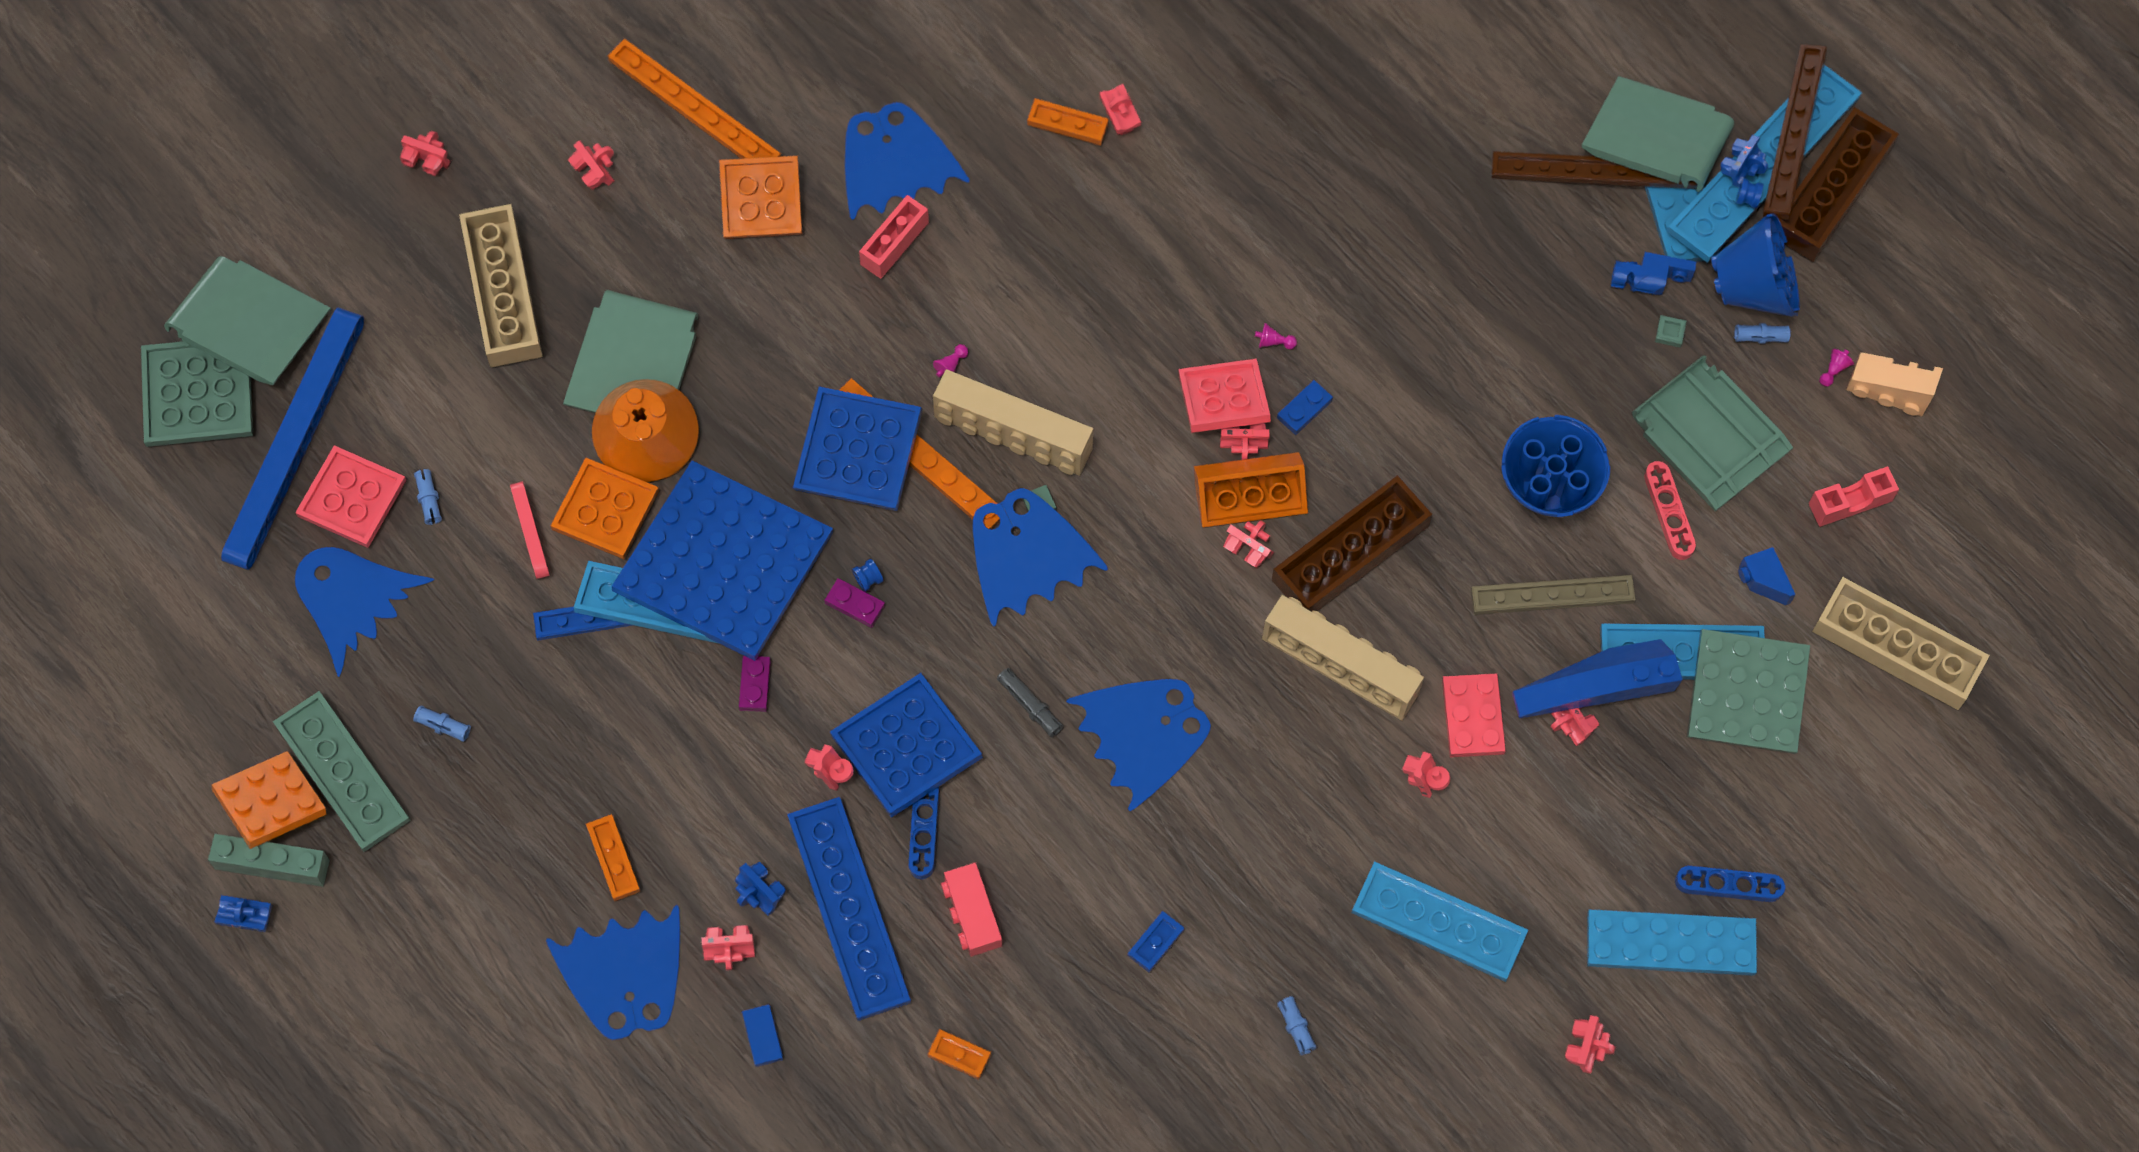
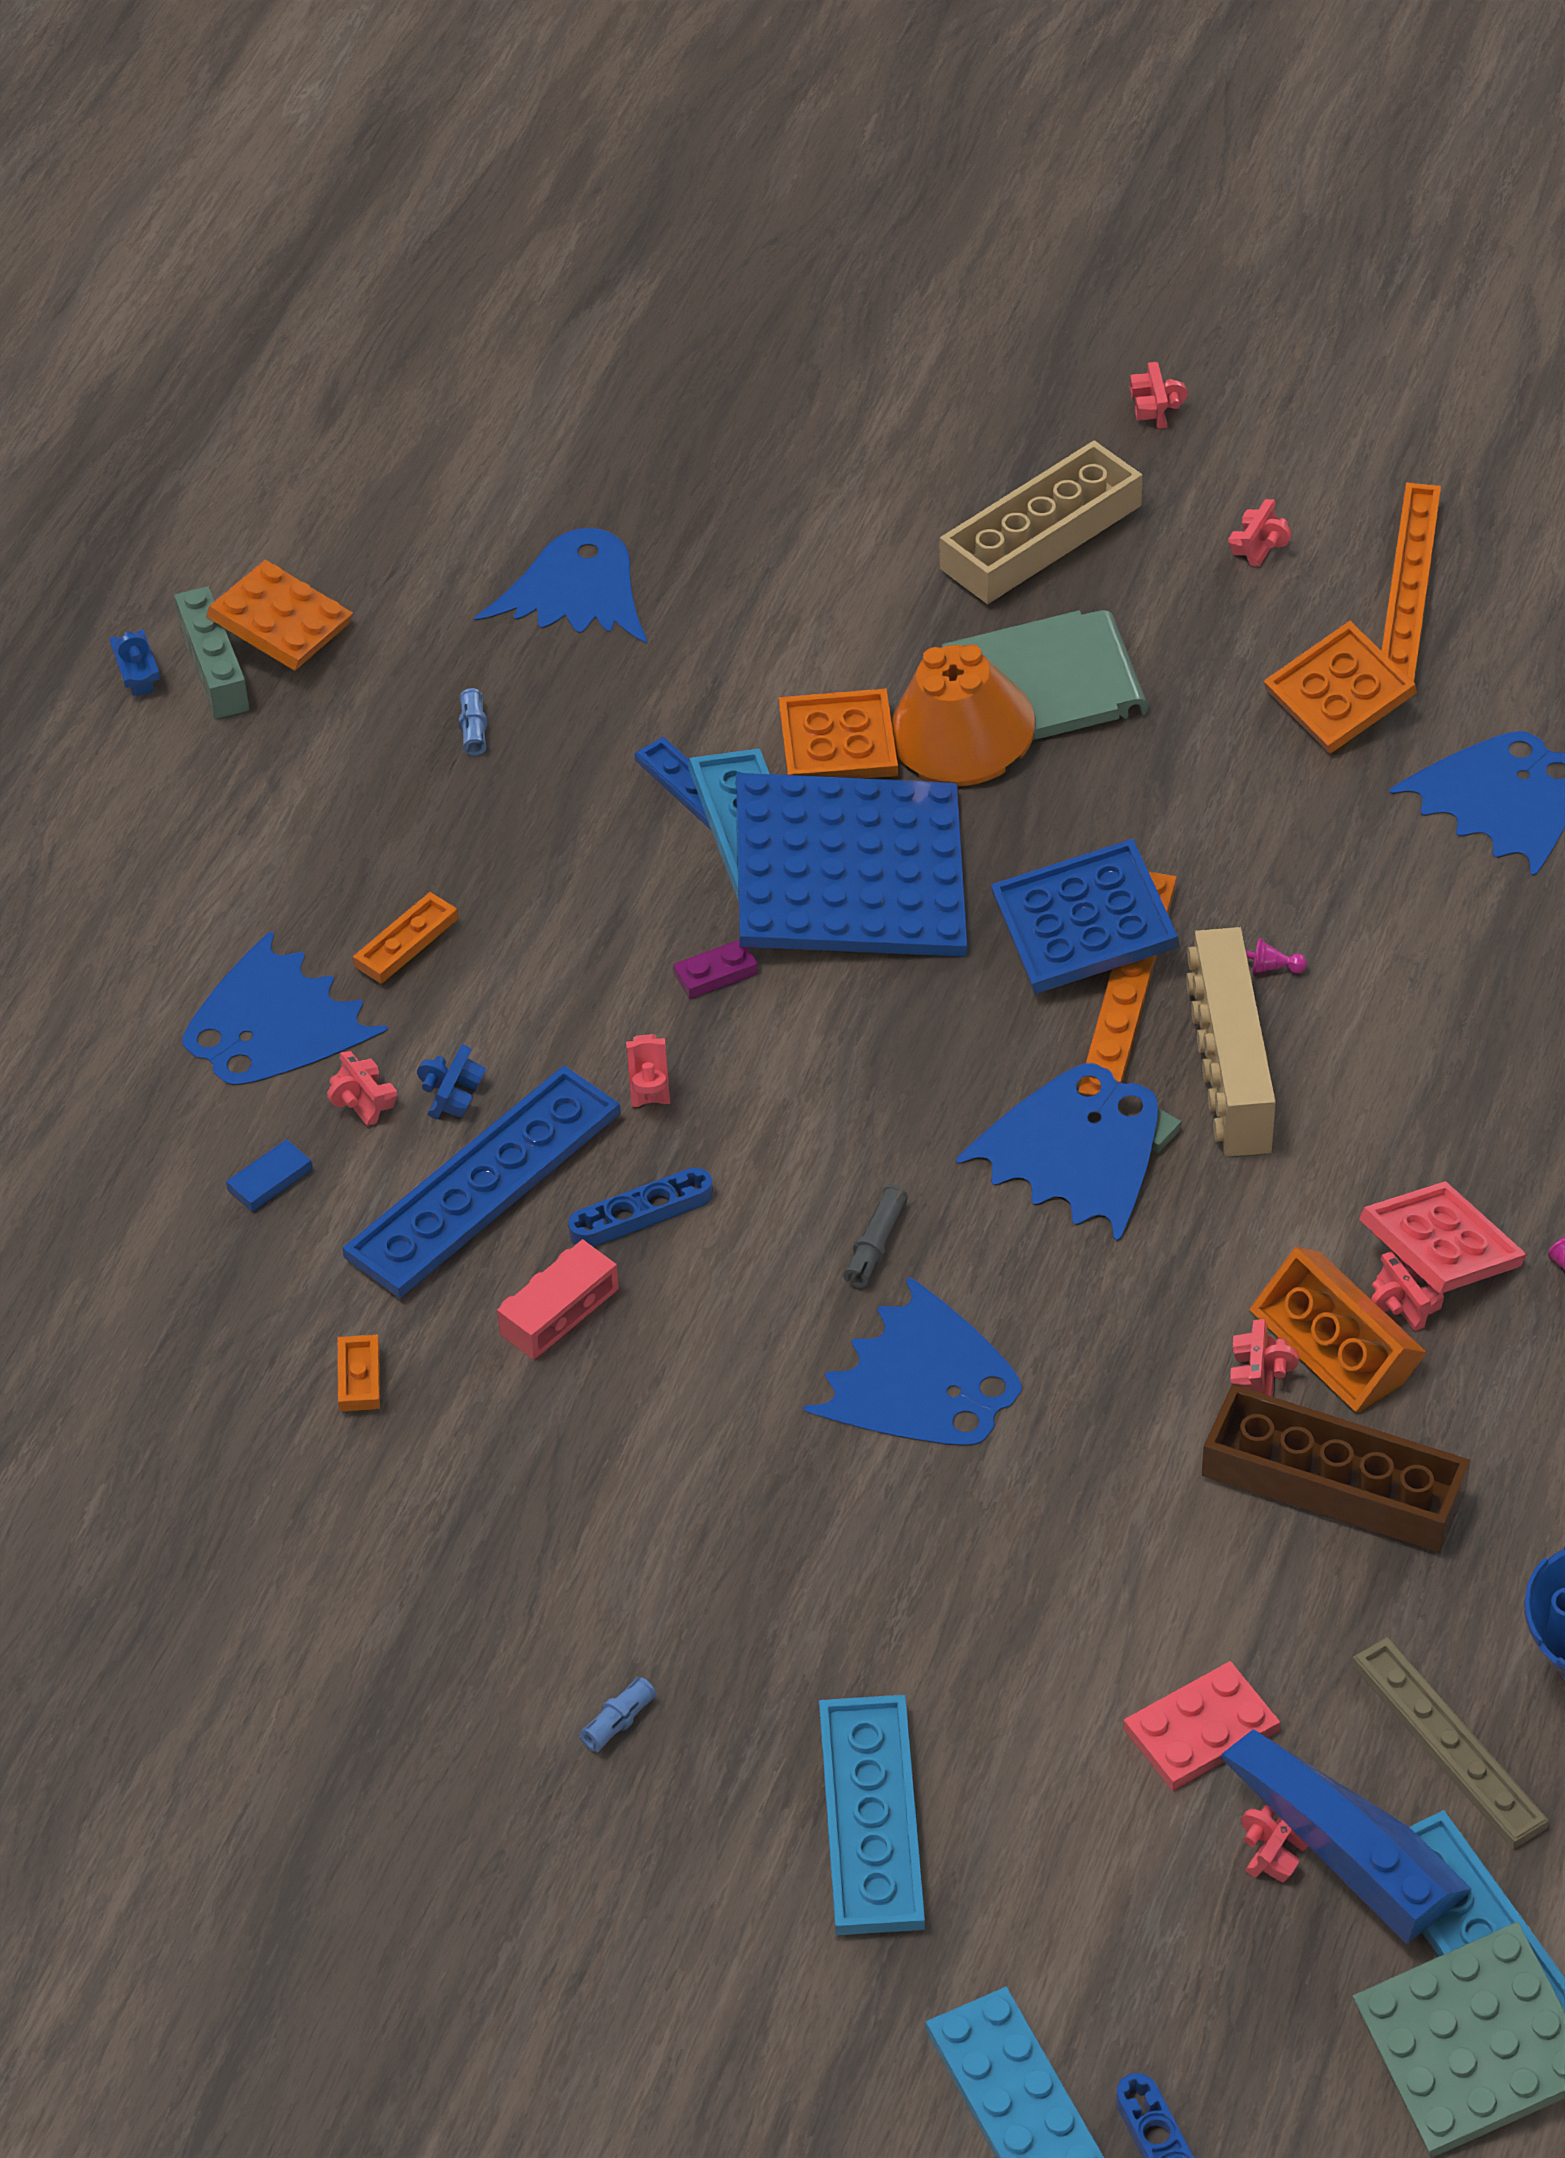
camera: 65 degrees right, 20 degrees down
(192, 396) = (726, 355): sand green plate -> none
(247, 319) = (837, 348): sand green piece -> none
(292, 439) = (727, 450): blue beam -> none
(341, 771) = (357, 666): sand green plate -> none
(351, 496) = (692, 526): coral plate -> none
(427, 497) = (740, 587): medium blue pin -> none
(529, 530) = (761, 685): coral beam -> none
(854, 603) = (886, 1013): magenta plate -> none
(867, 575) = (928, 1003): blue wheel -> none
(894, 237) = (1390, 824): coral brick -> none
(906, 745) = (731, 1136): blue plate -> none
(1155, 941) = (637, 1508): blue plate -> none
(1304, 407) = (1502, 1341): blue plate -> none
(1342, 657) = (1169, 1524): tan brick -> none
(1426, 774) = (1066, 1690): coral hips -> none
(1593, 1043) = (803, 2073): coral hips -> none

